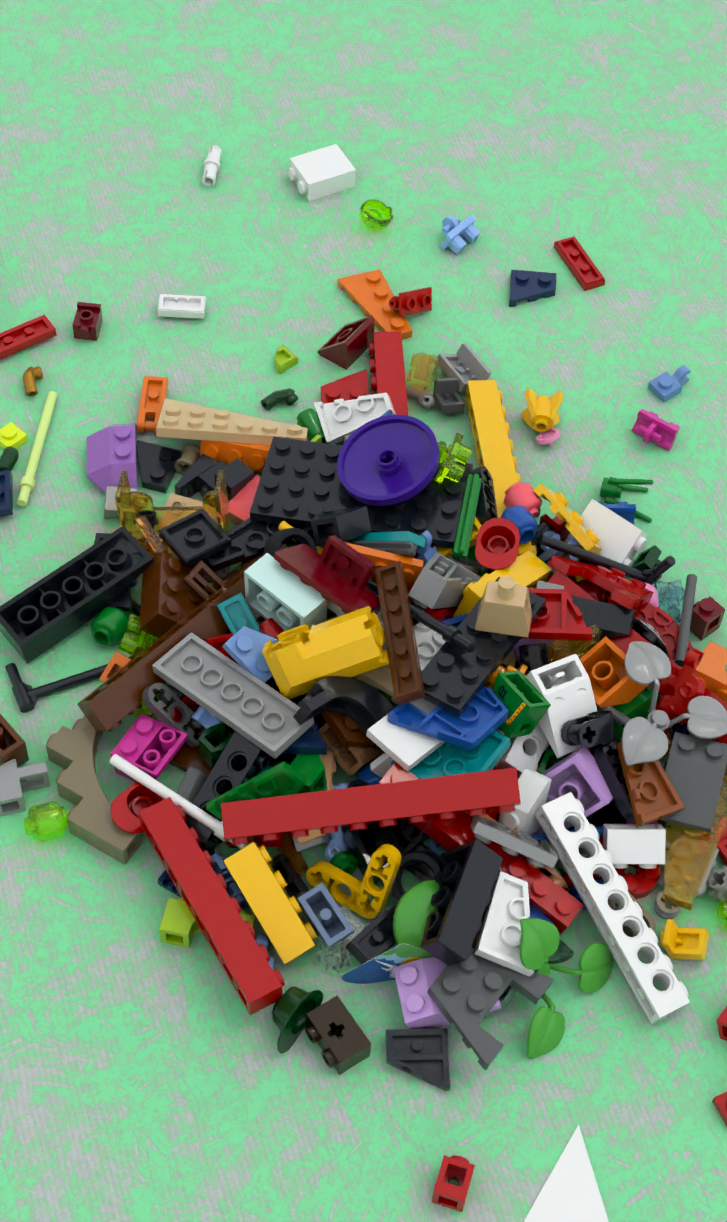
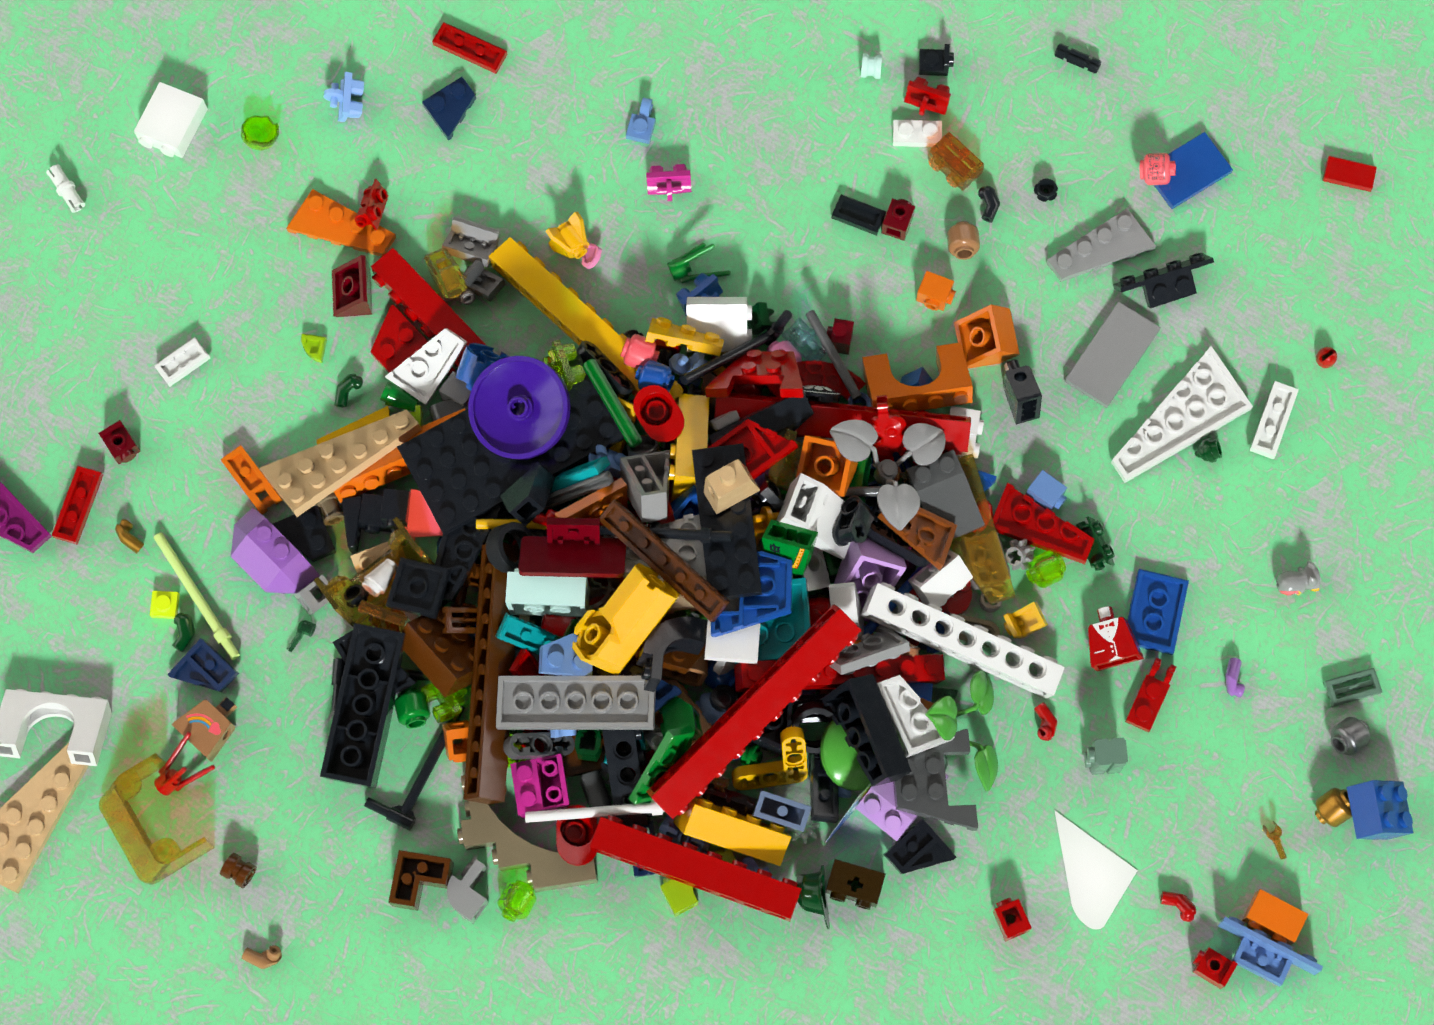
camera: 35 degrees left, 20 degrees up
(89, 520) = (304, 628): none -> clear green hand
(171, 514) = (379, 578): none -> white cone
(636, 1043) = (1048, 722): none -> red arm
(667, 1107) = (1106, 756): none -> sand green brick

